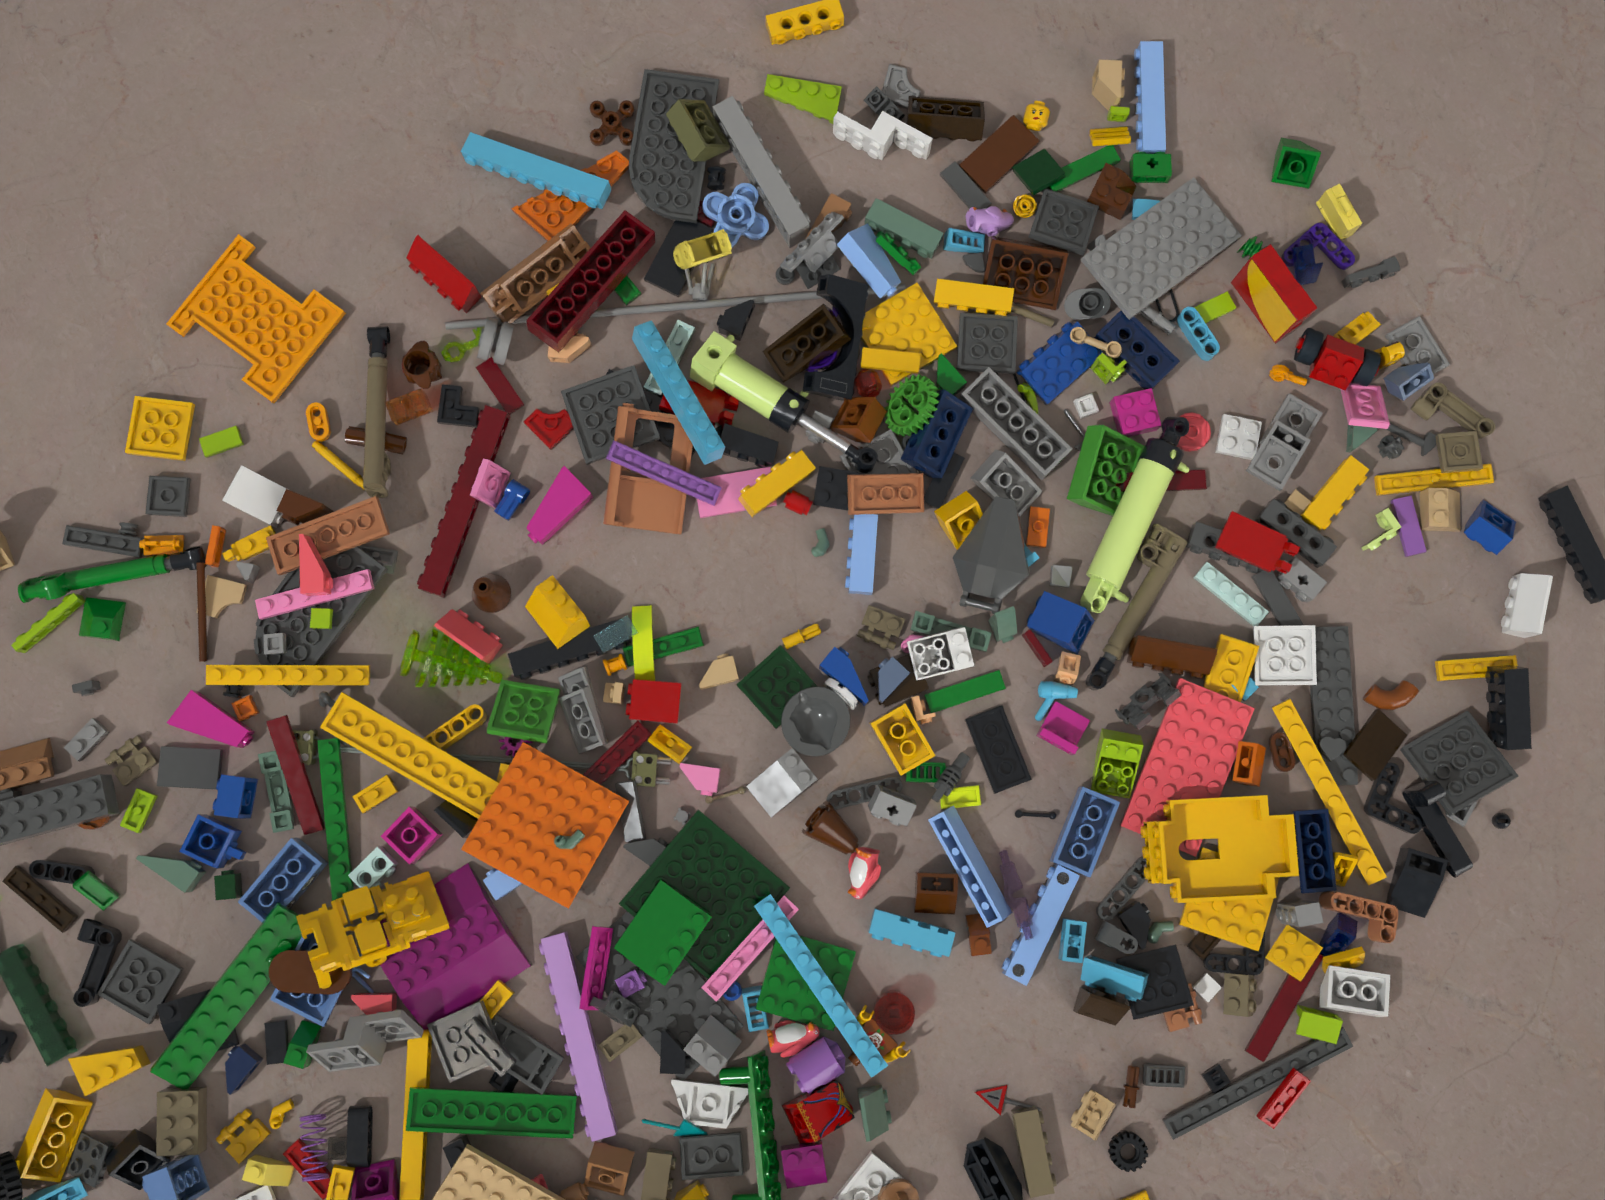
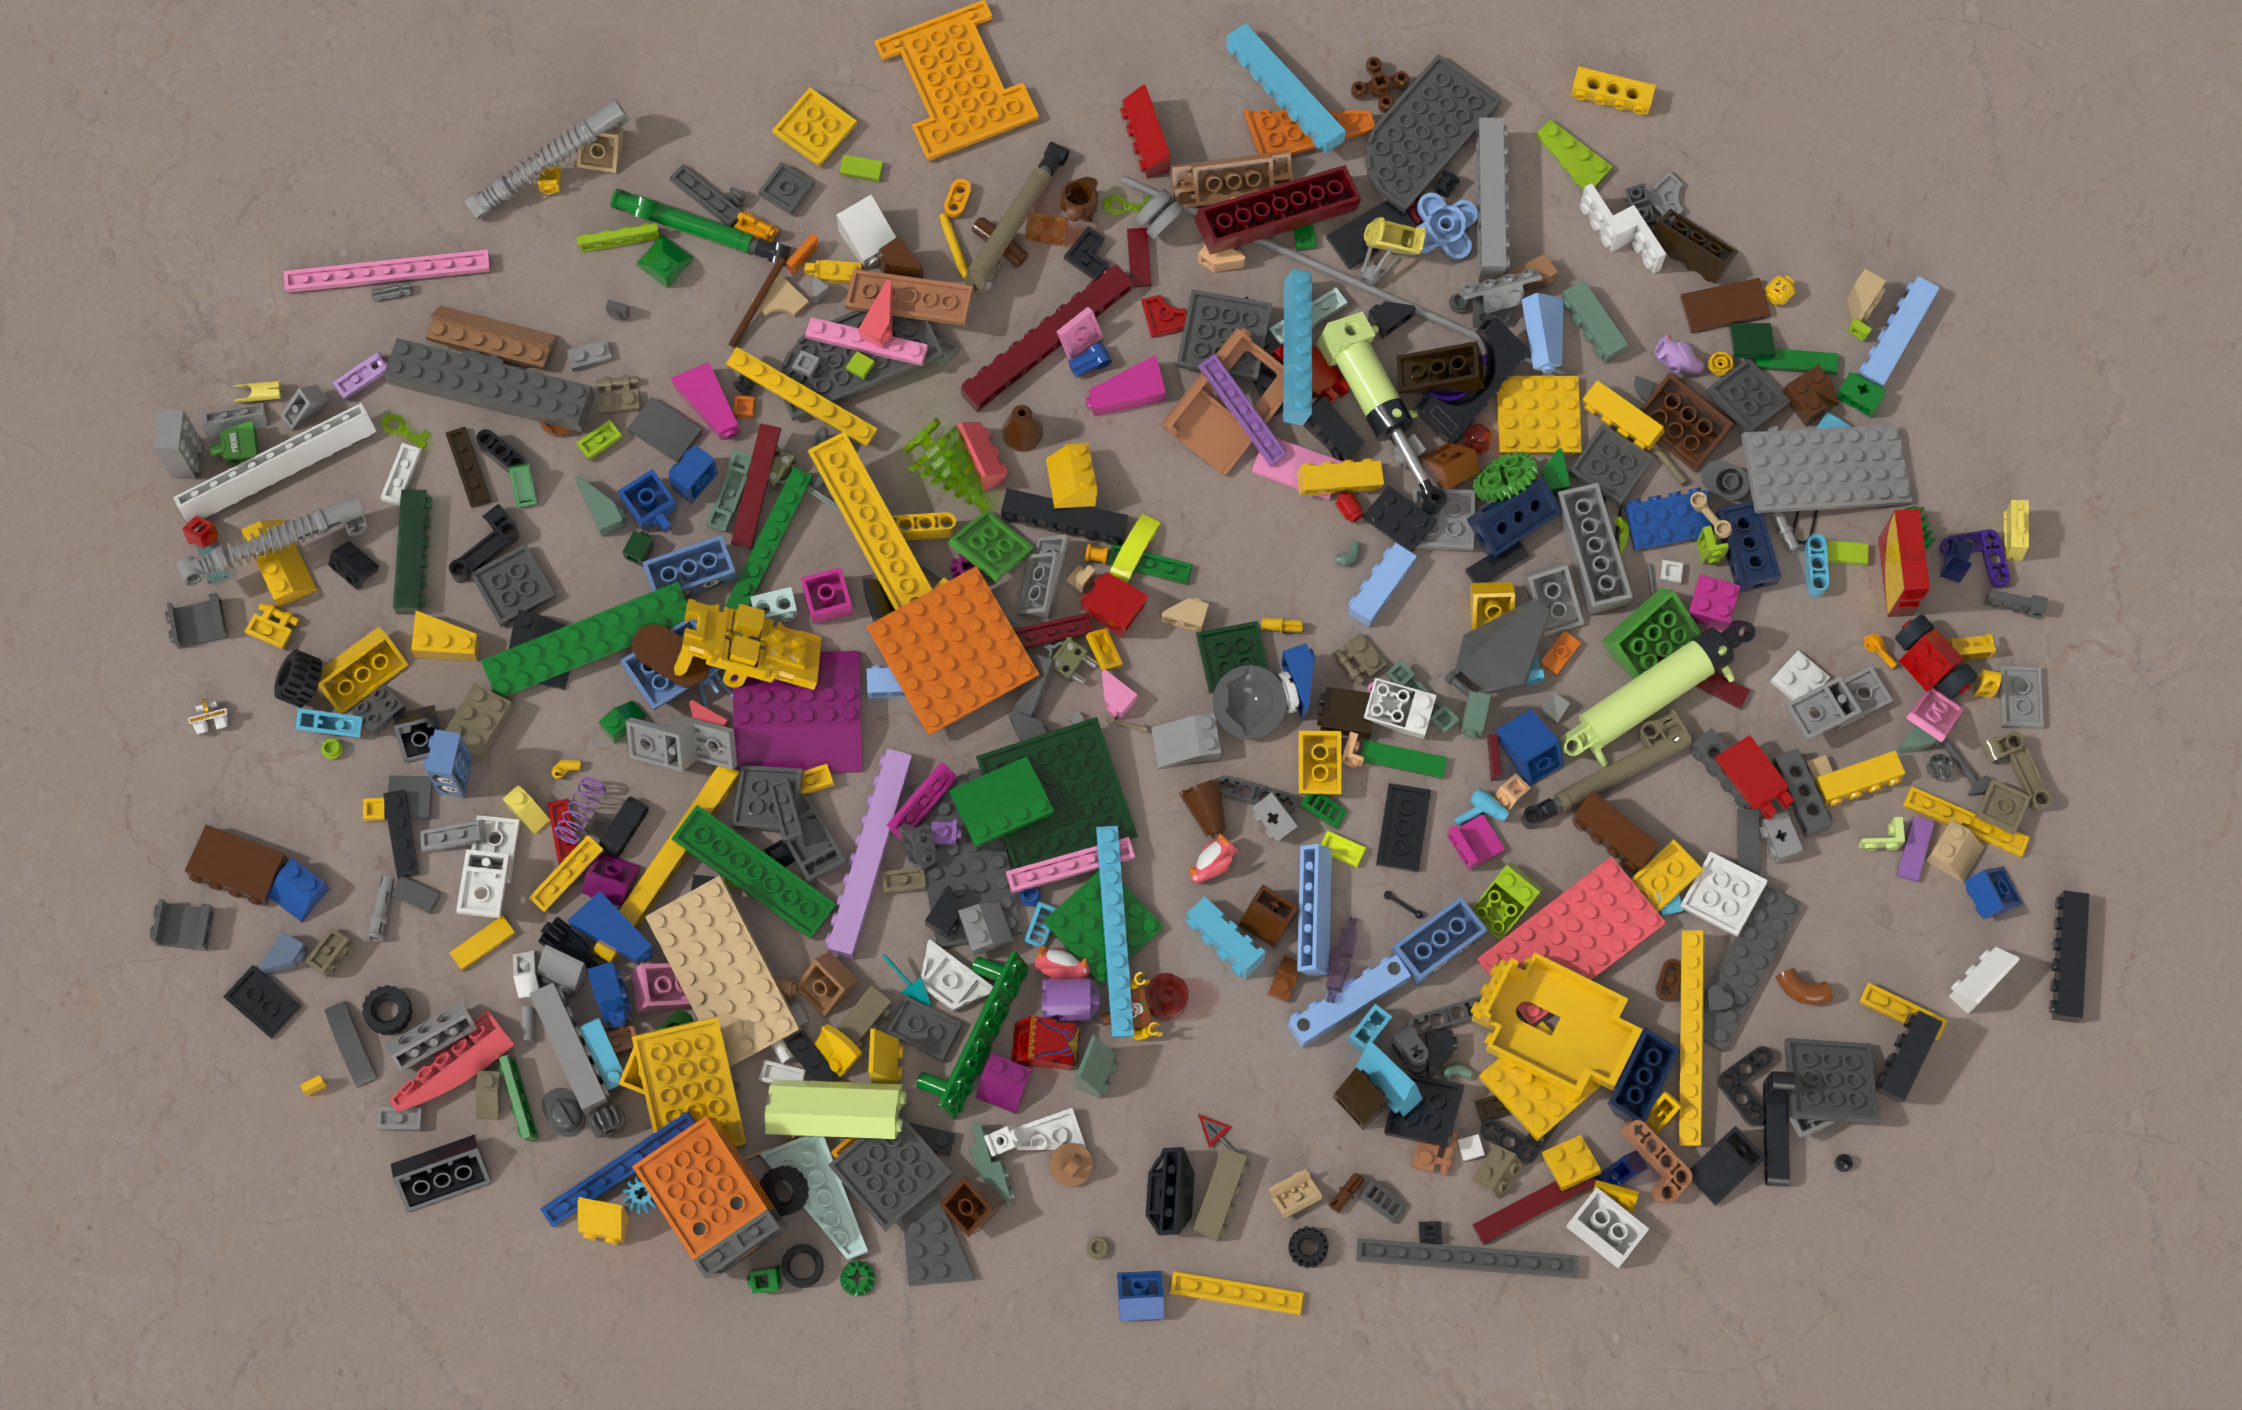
camera: 30 degrees right, 10 degrees down
(240, 1066) = (555, 707): dark blue slope -> none
(248, 1140) = (523, 774): yellow plate -> none
(276, 1041) = (599, 705): black tile -> none
(375, 794) = (814, 544): yellow plate -> none
(568, 842) = (964, 674): sand green arm -> none
(615, 634) = (1113, 524): clear light blue tile -> none
(697, 129) = (1454, 131): olive slope -> none
(885, 493) = (1434, 541): nougat tile -> none
(890, 360) = (1510, 429): yellow tile -> none
(890, 677) = (1341, 701): sand blue slope -> none
(898, 253) = (1575, 339): green hinge -> none
(950, 777) = (1343, 824): dark grey hinge -> none
(963, 247) = (1641, 369): medium azure slope -> none
(964, 187) = (1674, 315): dark grey tile -> none
(1110, 136) = (1839, 346): yellow tile -> none
(1134, 710) = (1554, 864): dark grey piece -> none
(1198, 433) = (1759, 652): coral tile -> none
(1231, 594) = (1707, 814): light aqua plate -> none
(1249, 763) = (1630, 969): orange brick -> none
(1283, 1098) = (1482, 1284): red tile -> none
(1295, 163) = (2002, 464): green slope -> none
(1299, 913) = (1595, 1121): light grey brick -> none
(1318, 1024) = (1554, 1238): lime panel -> none
(1374, 744) = (1761, 1022): dark brown tile -> none
(1408, 379) = (1993, 715): sand blue slope -> none

